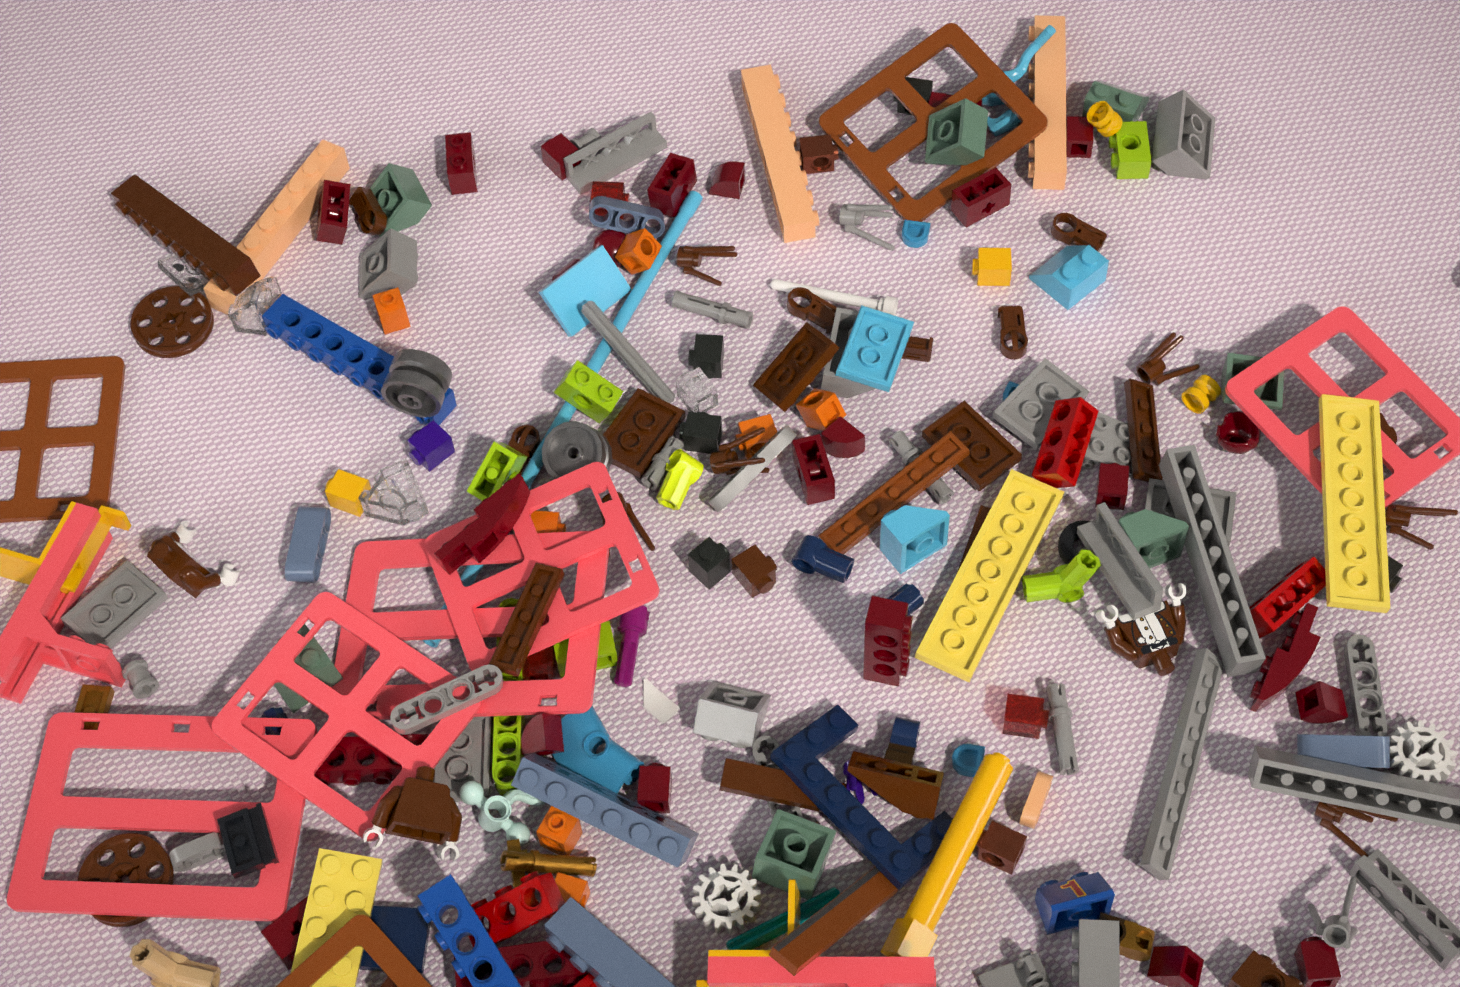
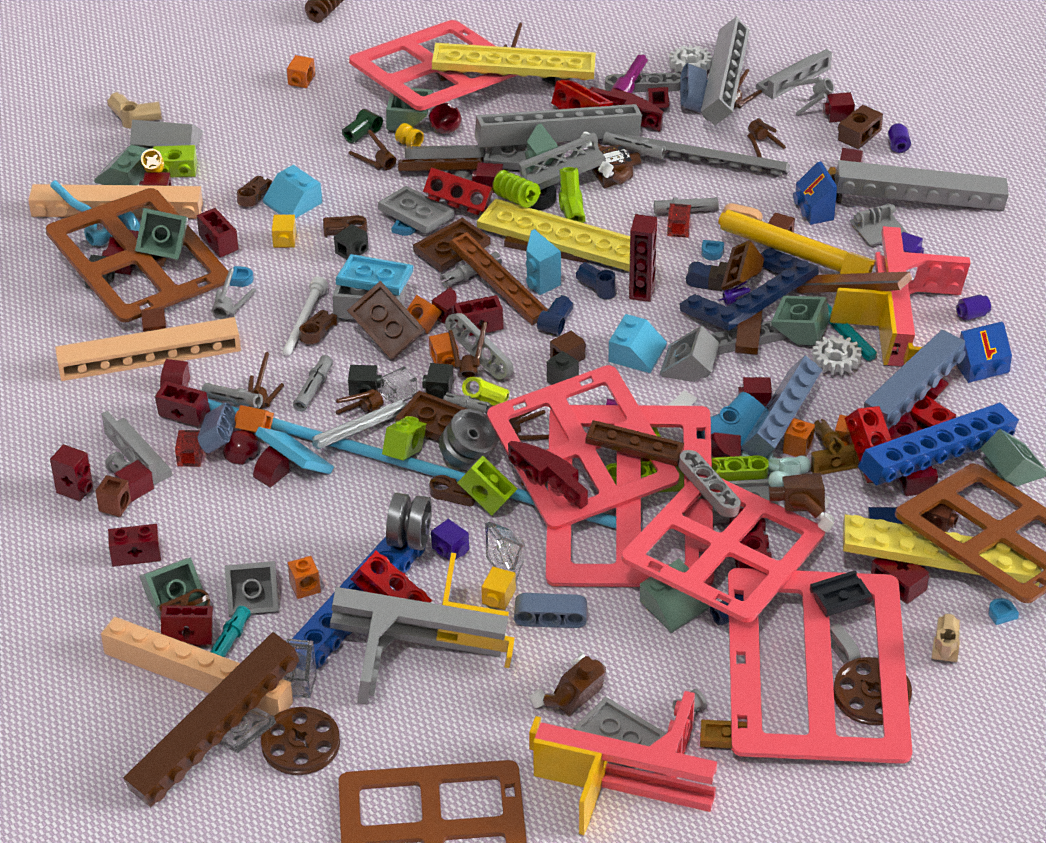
camera: 95 degrees left, 15 degrees down
(275, 411) = (443, 625): none -> light grey piece
(330, 255) = (231, 630): none -> teal pin
(330, 386) = (386, 576): none -> red brick
(530, 136) = (113, 495): none -> copper brick
(565, 97) = (71, 472): none -> dark red brick
(673, 363) = (370, 401): none -> reddish brown plant
(680, 234) = (237, 396): none -> light grey pin
(759, 650) = (636, 344): none -> medium azure slope
(971, 336) = (351, 241): none -> pearl dark grey brick
(1070, 508) = (516, 189): none -> lime piece
(1167, 406) = (442, 152): none -> light grey beam
(1179, 670) = (642, 147): none -> light grey pin
(1221, 339) = (364, 121): none -> dark green piece
(1229, 102) = (130, 110): none -> tan piece
(1246, 840) = (759, 131): none -> reddish brown plant
(1336, 656) = (627, 82): none -> magenta piece
(1338, 268) = (301, 71): none -> orange brick

